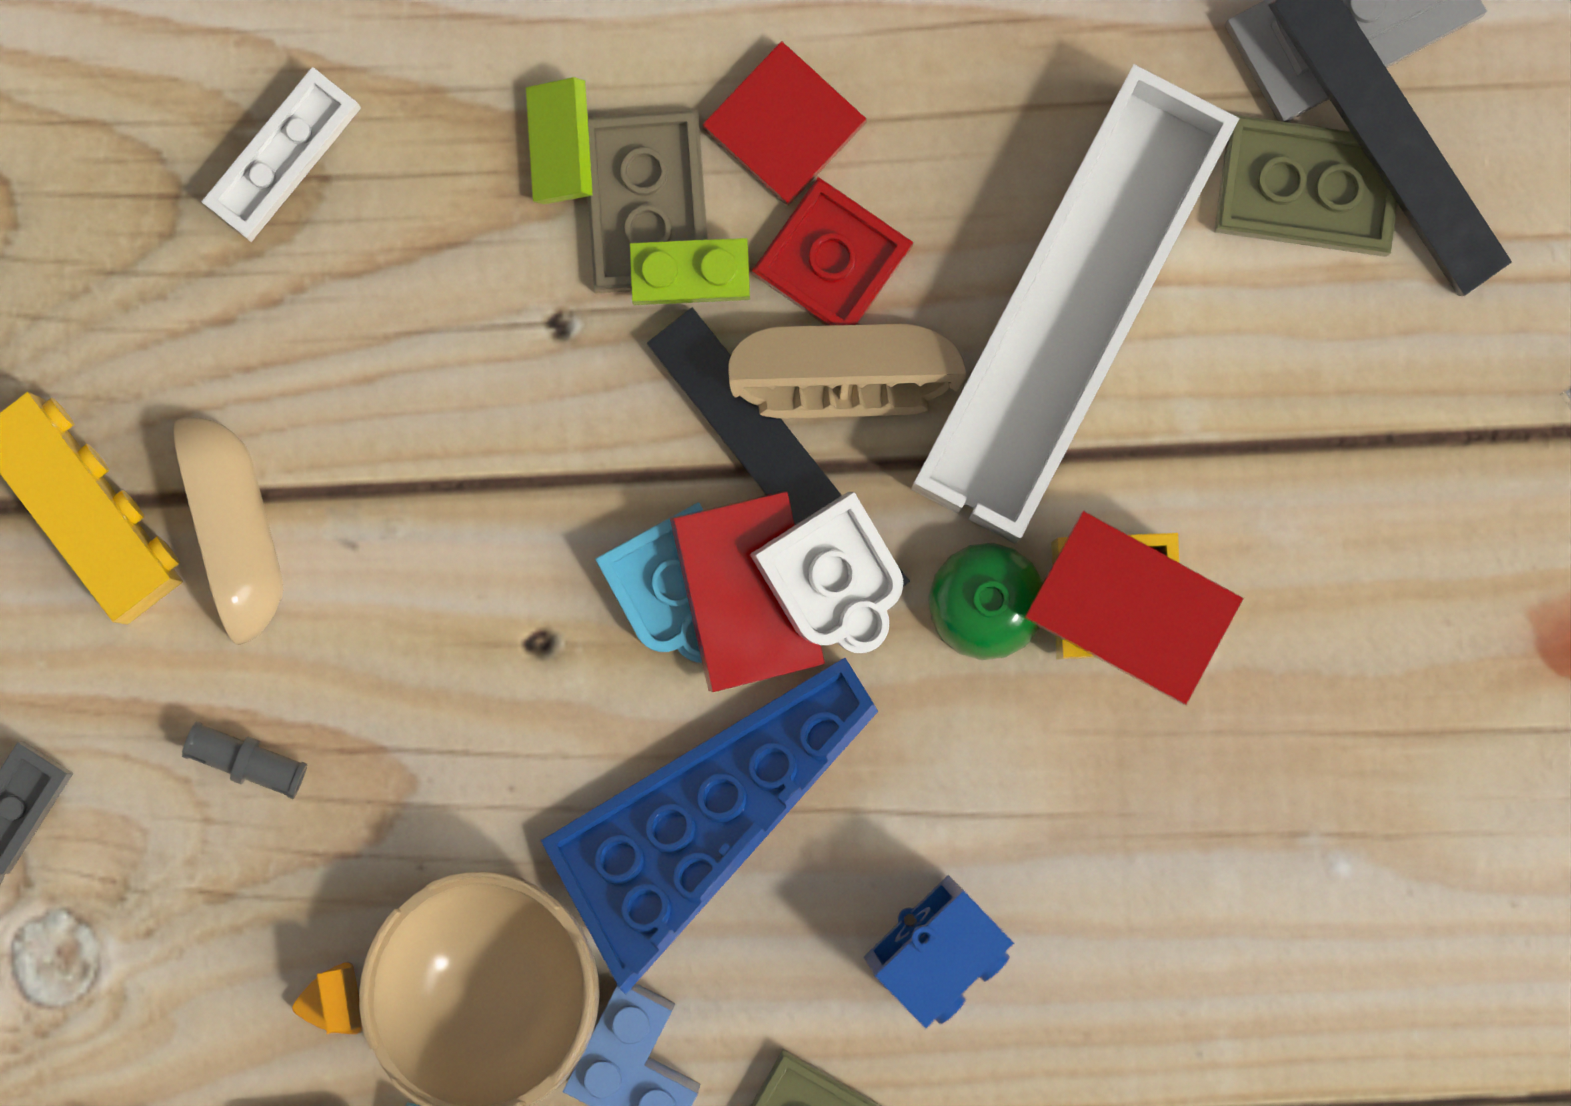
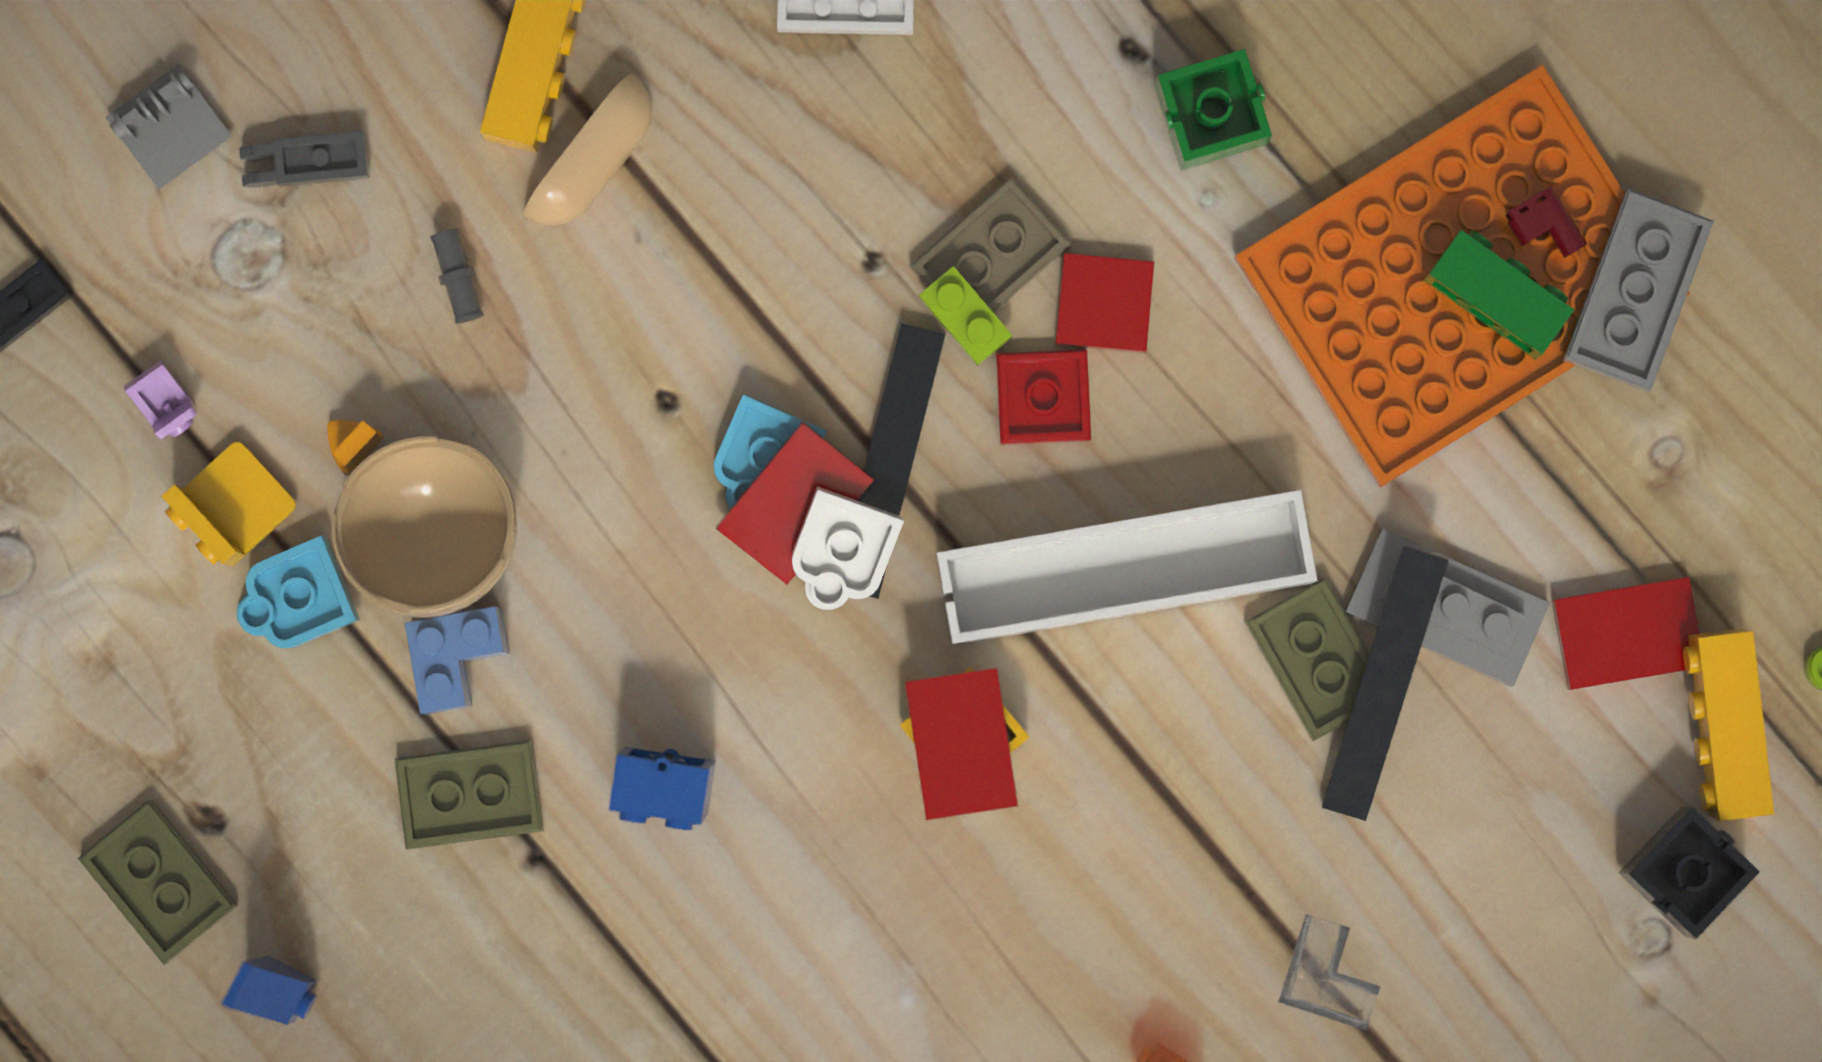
camera: 50 degrees right, 0 degrees up
(559, 141) = (985, 172): lime tile -> none
(677, 836) = (612, 575): blue wing -> none
(844, 370) = (977, 457): tan brick -> none
(983, 599) = (899, 650): green cylinder -> none

